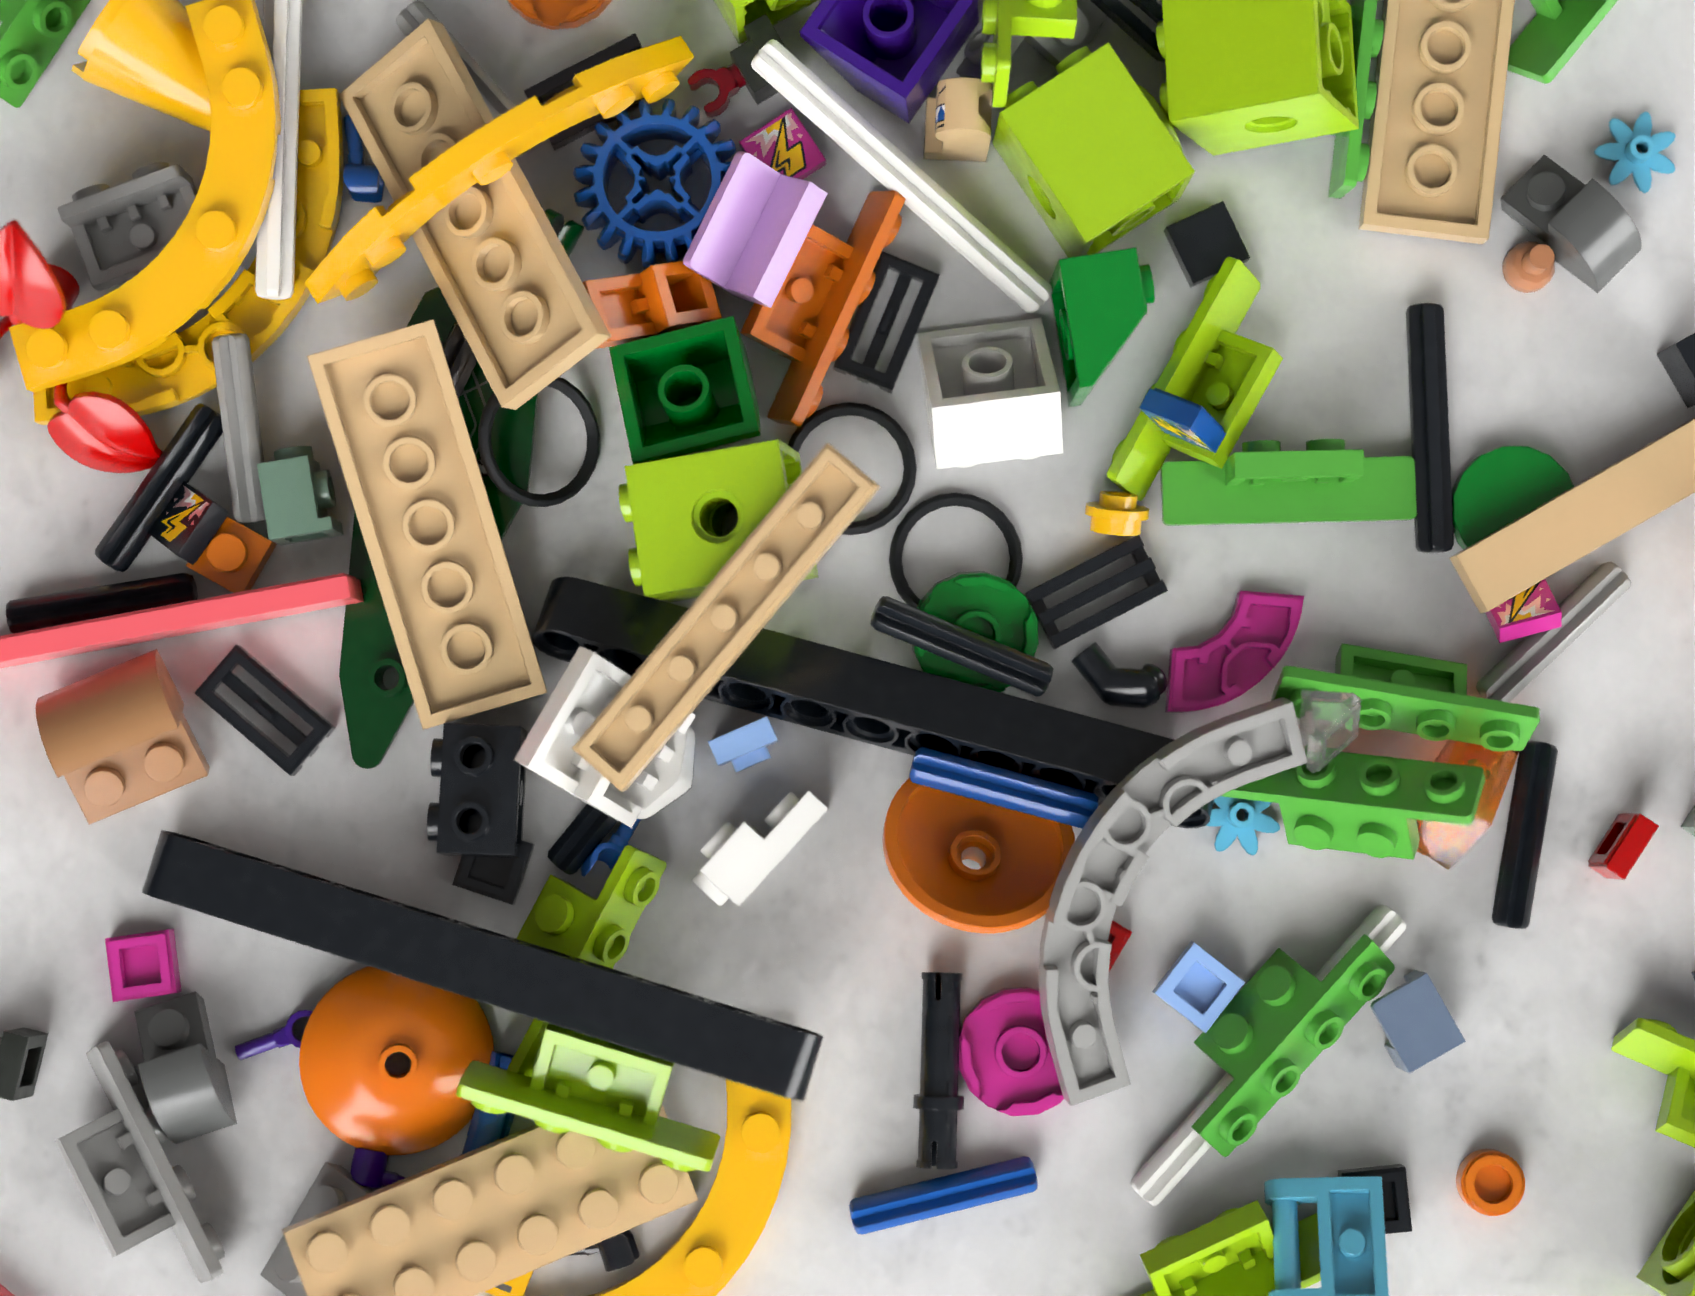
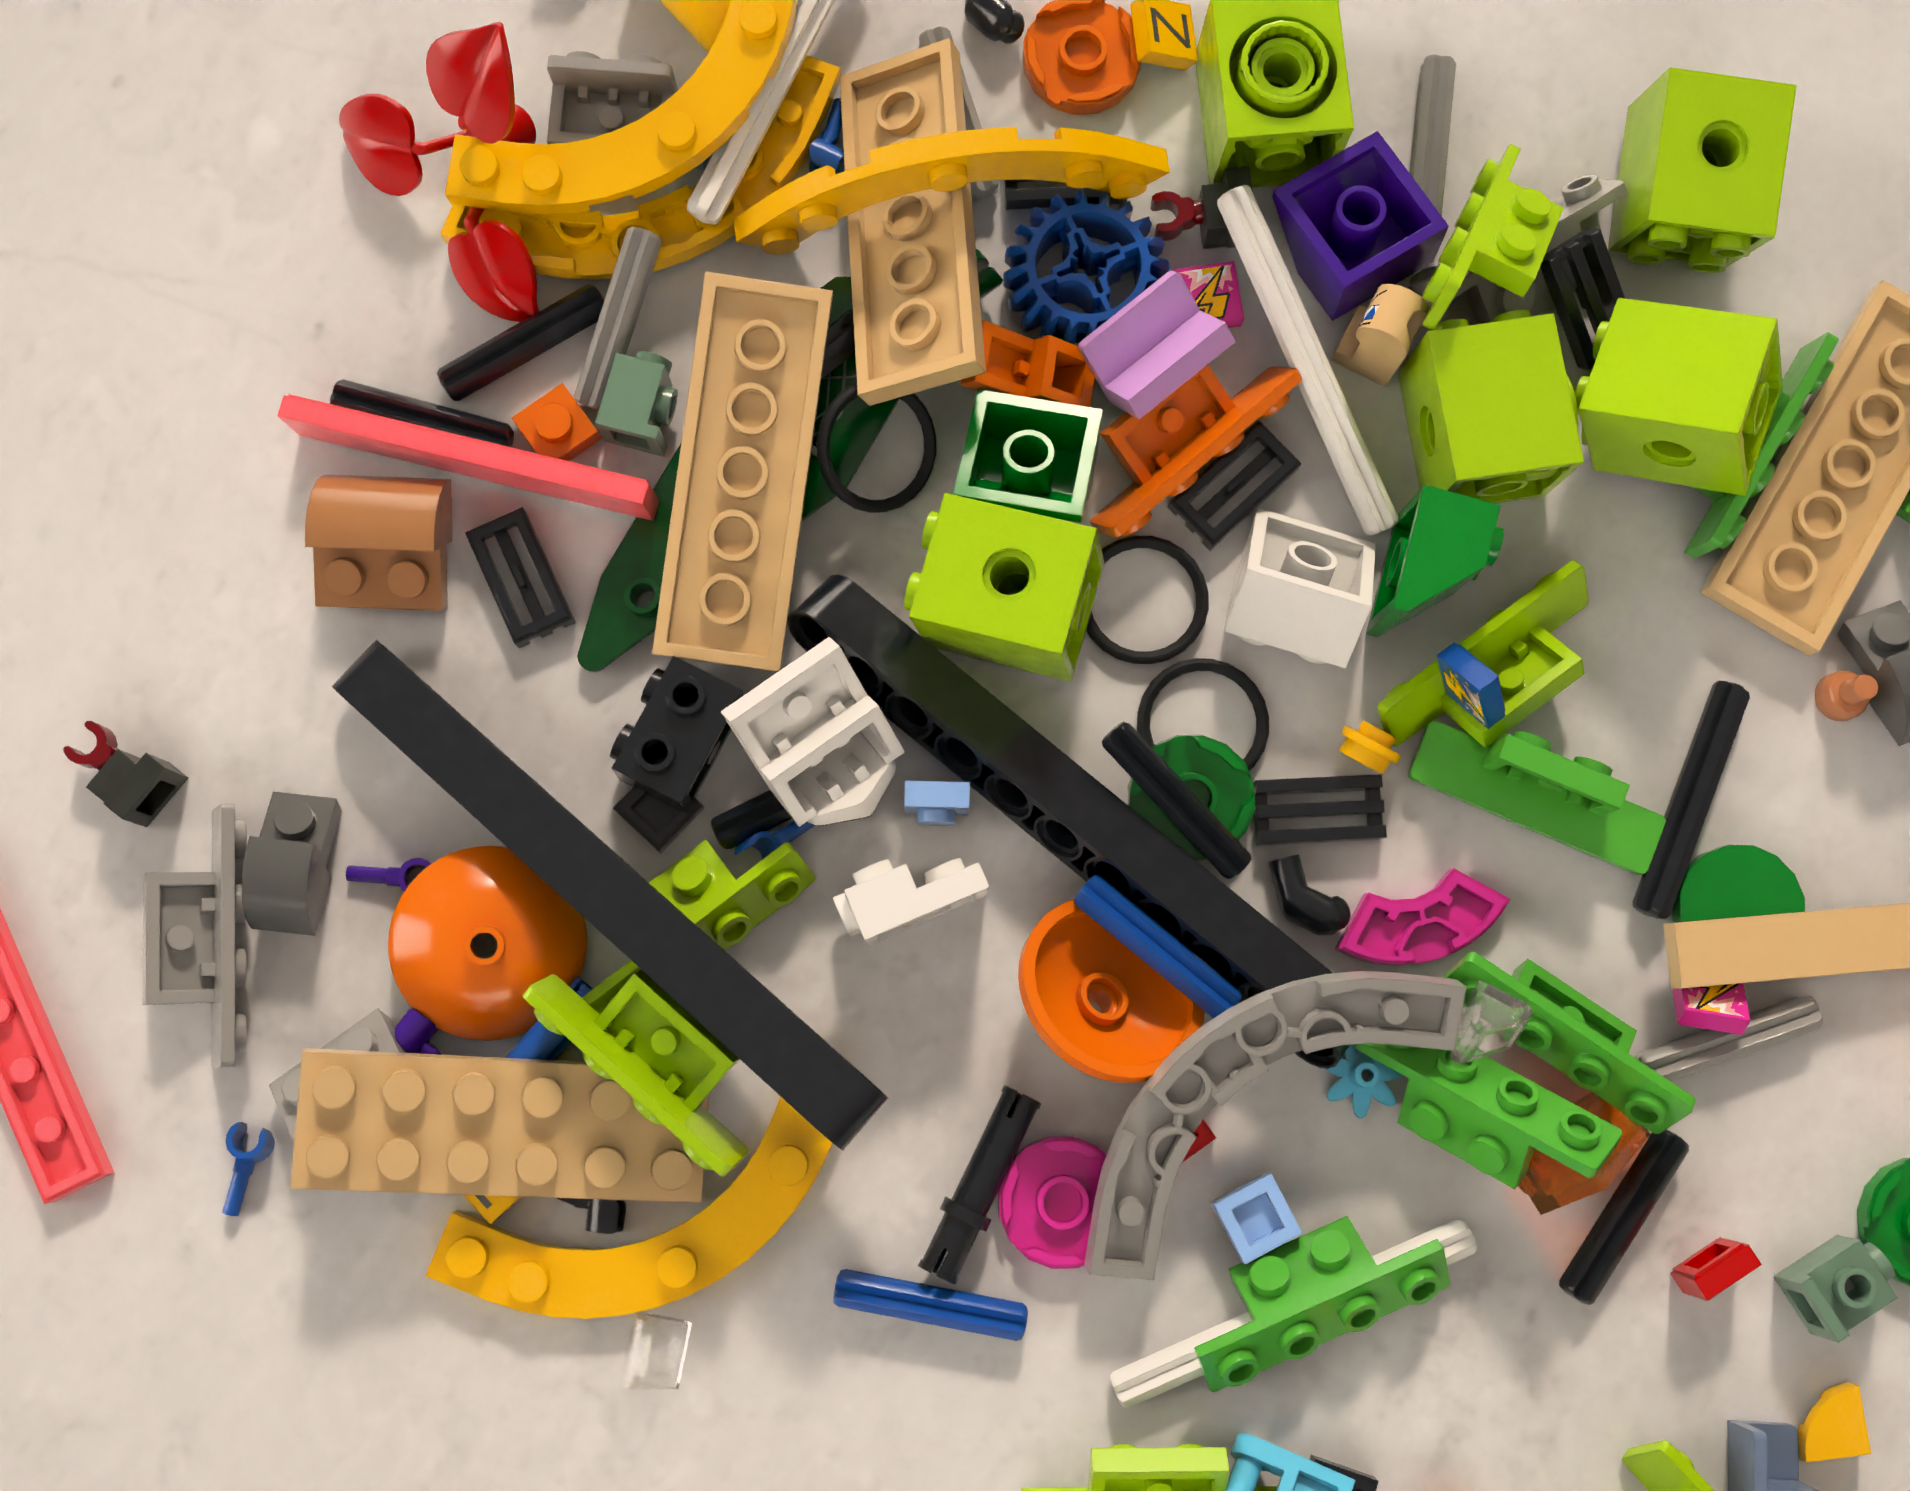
camera: 25 degrees right, 5 degrees down
(143, 965) = (302, 754): dark pink tile -> none
(188, 523) = (532, 381): black tile -> none
(726, 617) = (976, 667): tan tile -> none
(1205, 242) = (1552, 541): black tile -> none
(1416, 1022) = (1449, 1347): sand blue panel -> none

